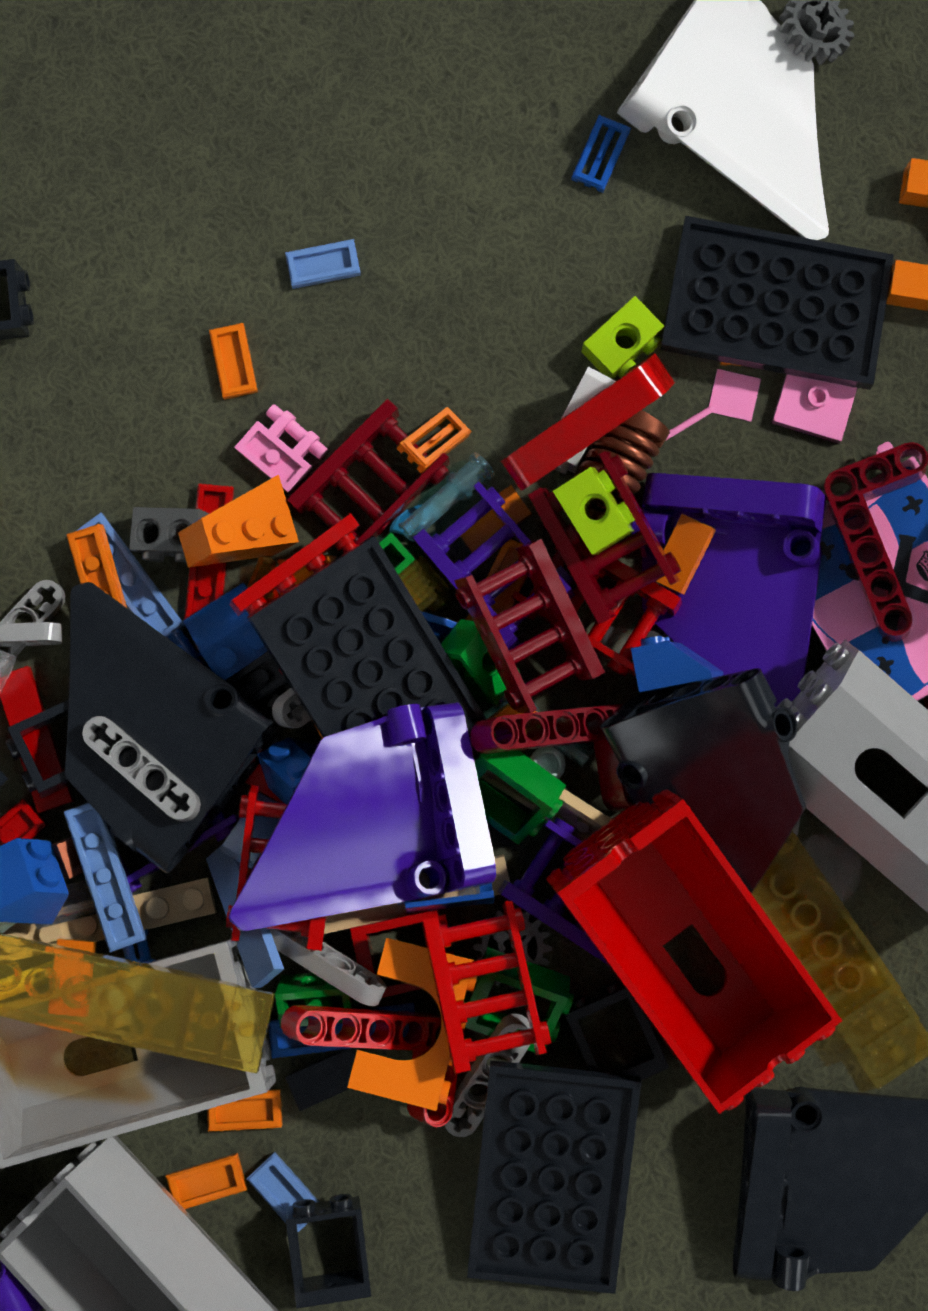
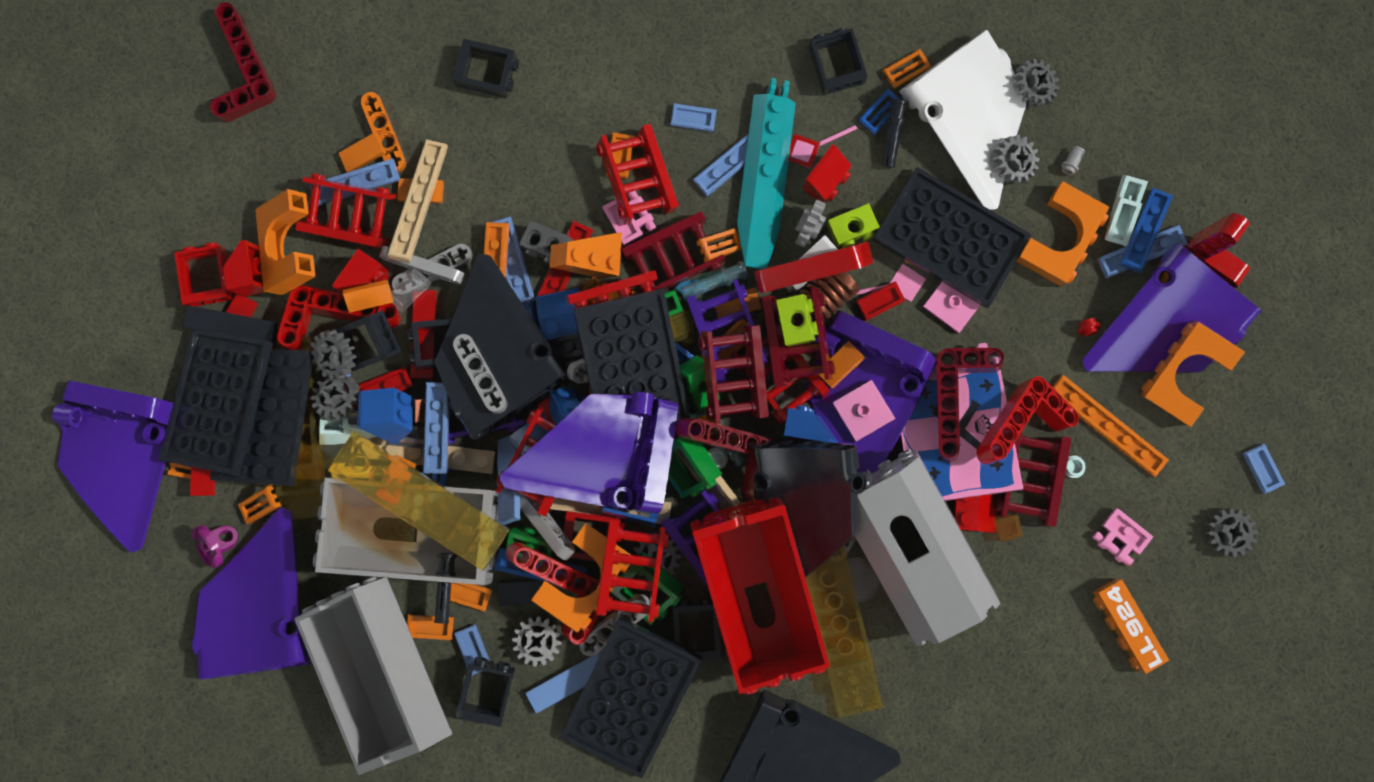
camera: 15 degrees right, 0 degrees up
(198, 1086) = (445, 568): none -> black pin
(283, 348) = (652, 159): none -> red fence
(393, 1152) = (529, 633): none -> light grey gear
(406, 306) = (722, 168): none -> medium blue tile
(441, 1194) = (562, 684): none -> medium blue tile
(462, 309) = (765, 174): none -> teal hinge
(508, 252) = (804, 150): none -> piece
(528, 128) = (844, 81): none -> black window
(557, 277) = (827, 175): none -> red slope
(558, 357) = (810, 223): none -> light grey gear
(598, 98) = (891, 78): none -> orange tile
(629, 161) = (895, 121): none -> black pin
(705, 436) = (880, 301): none -> red tile
(743, 610) = (863, 410): none -> bright pink plate
(829, 151) = (1017, 161): none -> dark grey gear
(914, 123) = (1071, 164): none -> light grey pin

